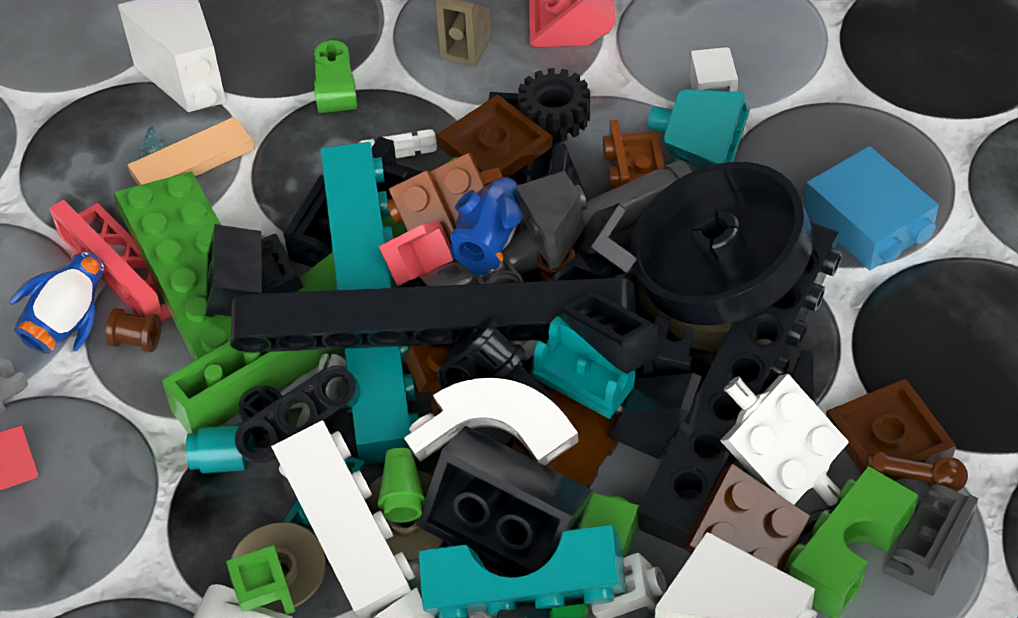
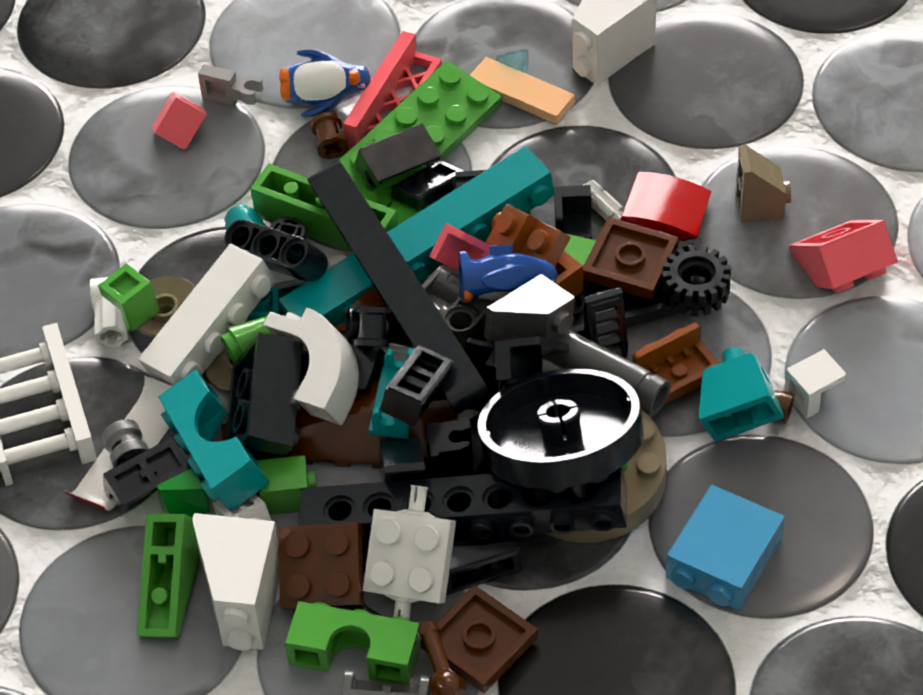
camera: 65 degrees right, 0 degrees up
(334, 79) = (649, 138): bright green piece -> none
(431, 100) = (666, 204): none -> red slope

